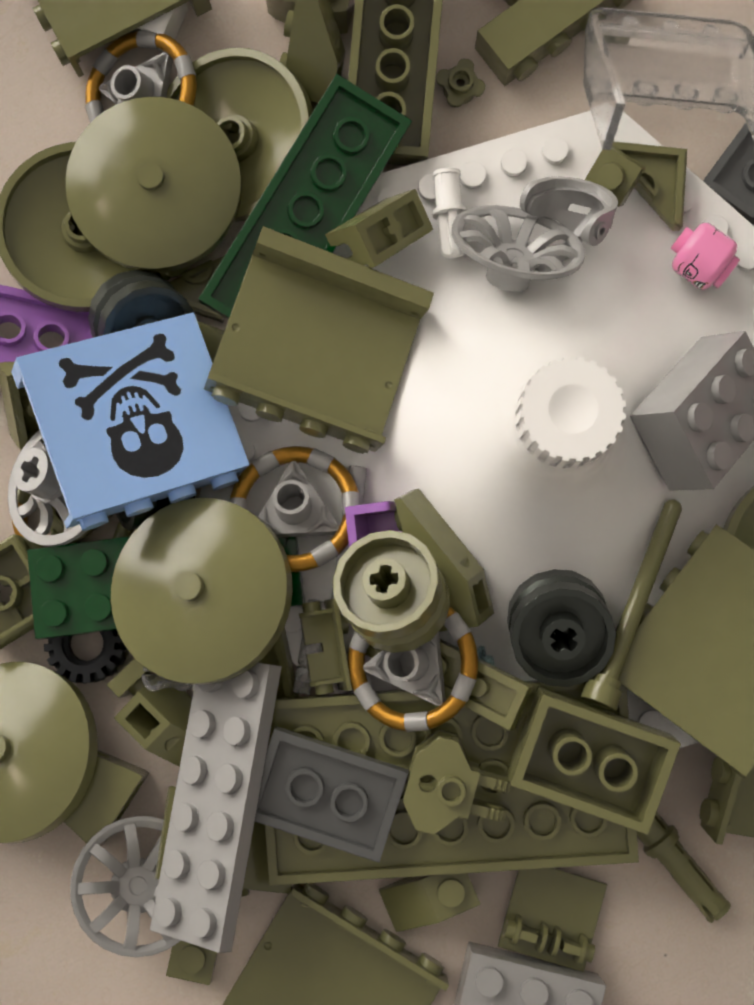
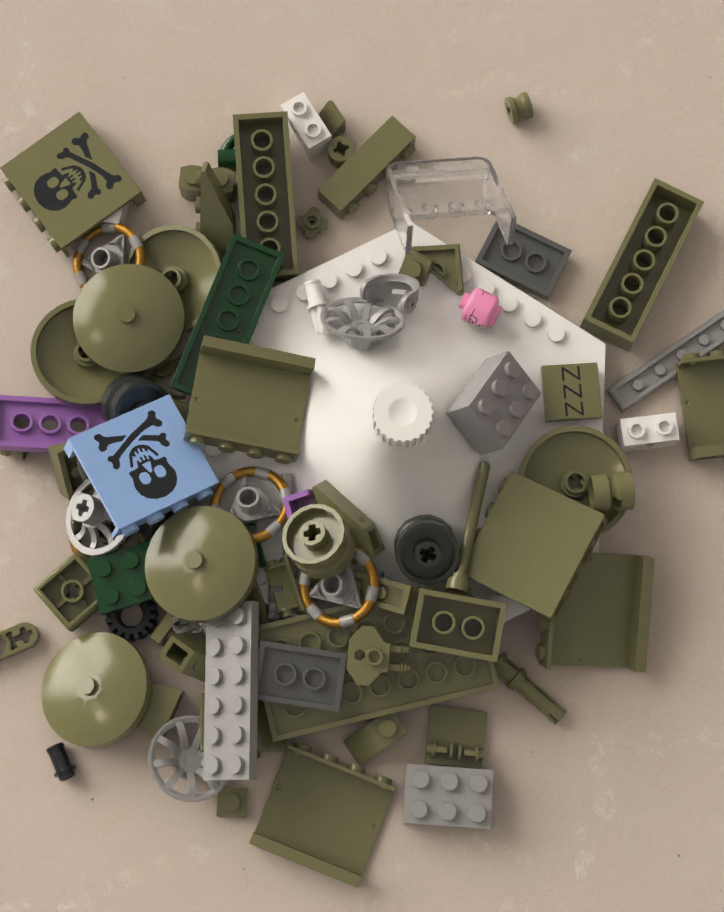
camera: 10 degrees left, 5 degrees down
(383, 229) = (278, 324): olive hinge -> none

